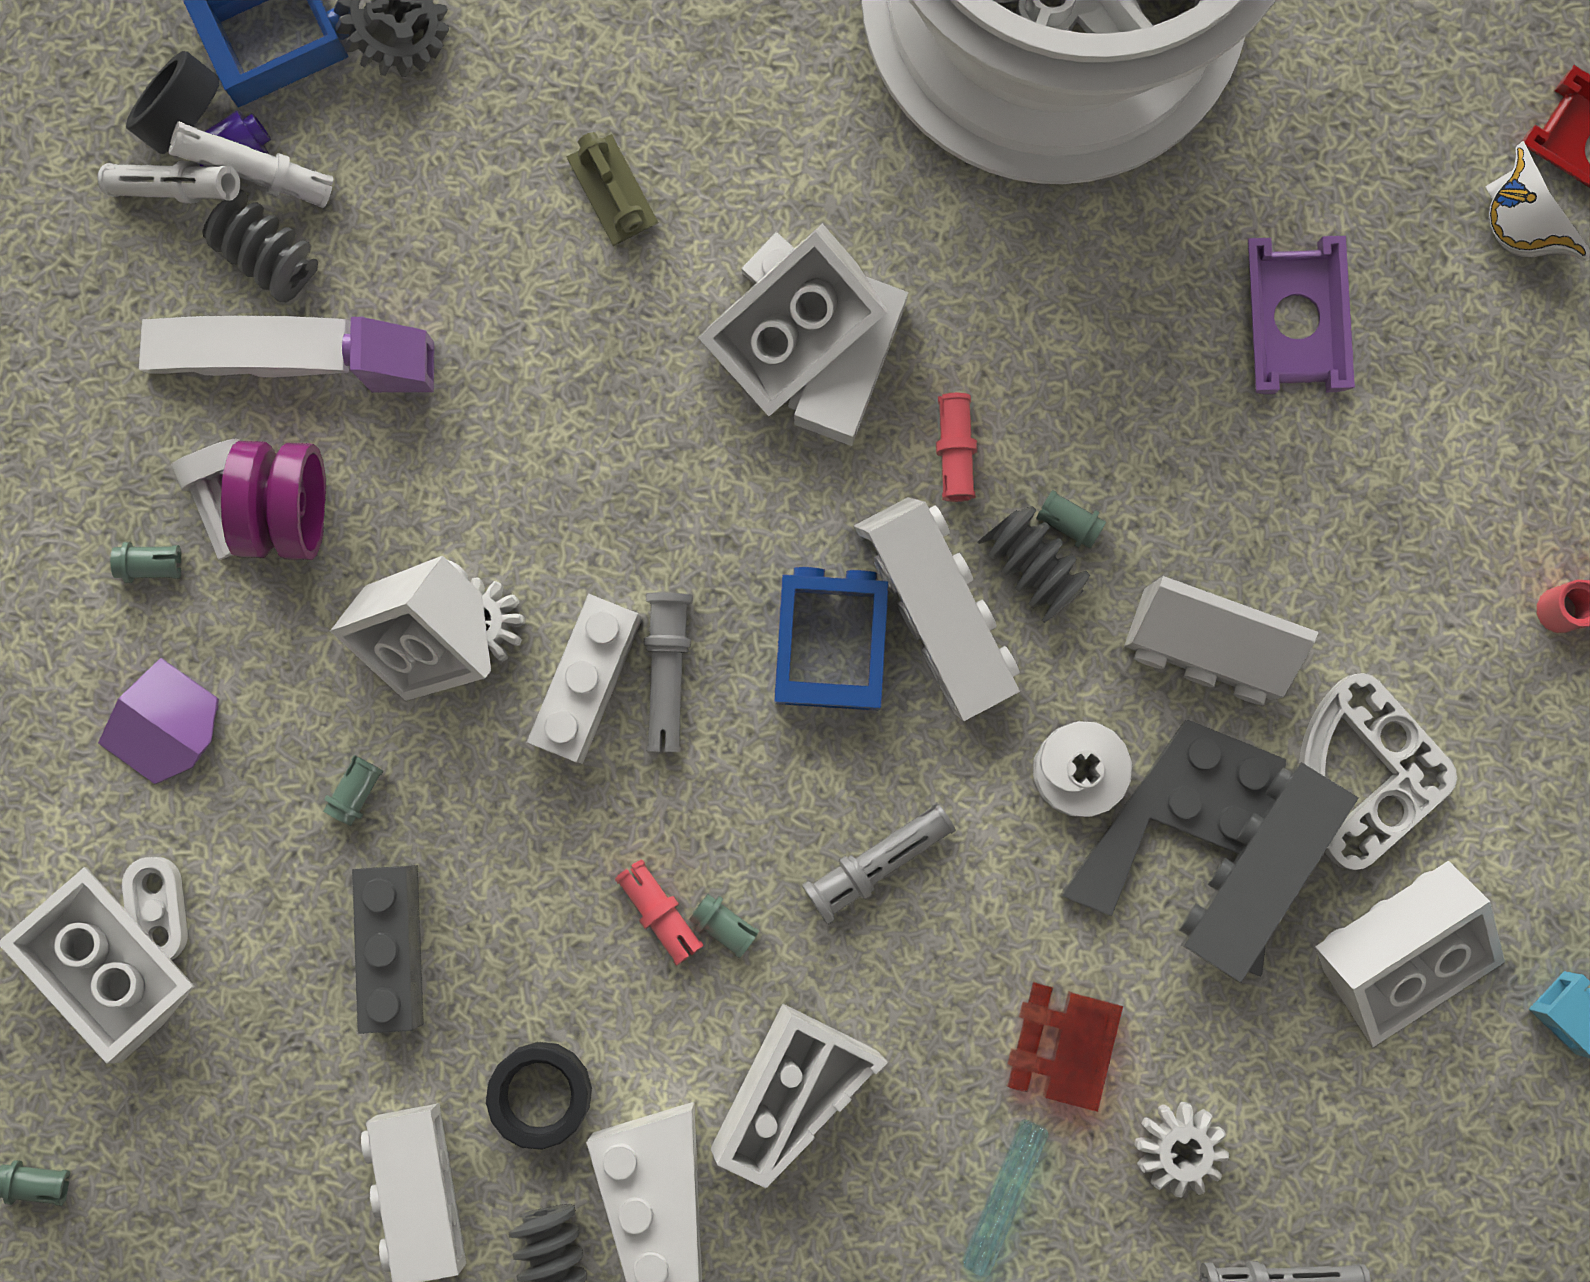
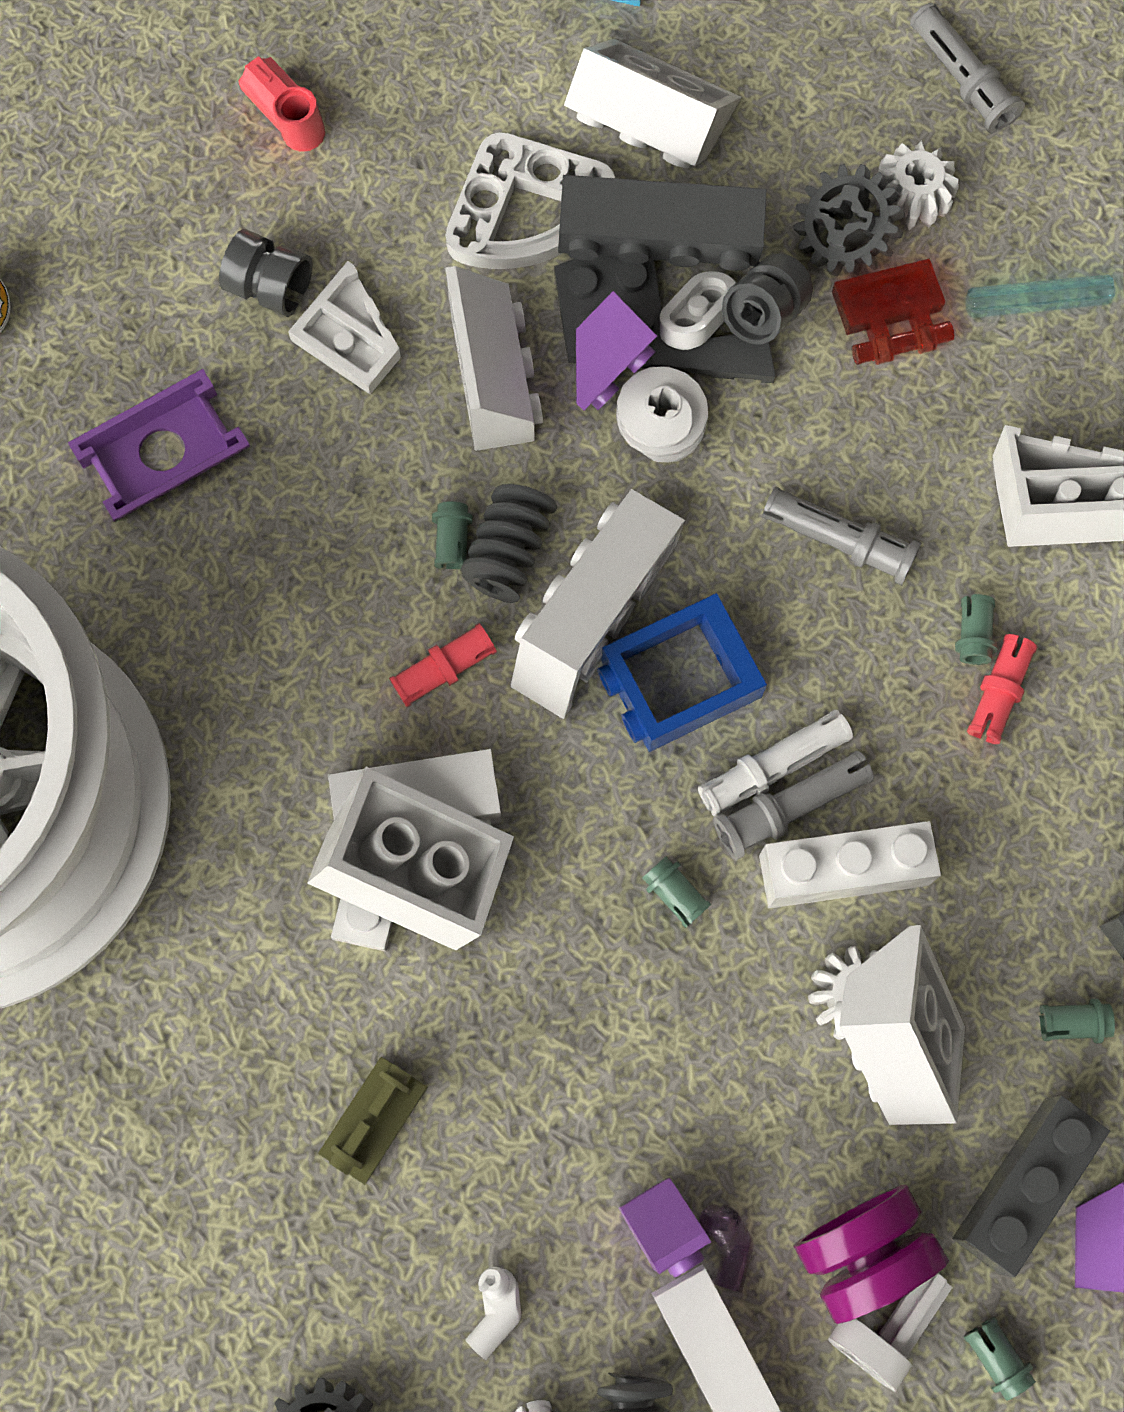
camera: 120 degrees left, 10 degrees down
(250, 664) = (1031, 1185): none -> dark grey brick
(356, 412) = (733, 1240): none -> arm
(411, 209) = (501, 1310): none -> white arm
(650, 529) = (676, 891): none -> sand green pin
(709, 676) = (758, 772): none -> white pin
(1137, 928) = (767, 298): none -> dark grey wheel
(1163, 857) = (695, 311): none -> white plate
(1170, 750) = (607, 345): none -> medium lavender slope
(1174, 1035) = (852, 200): none -> dark grey gear
(1322, 536) = (347, 332): none -> white wing
(1428, 485) = (262, 272): none -> dark grey wheel

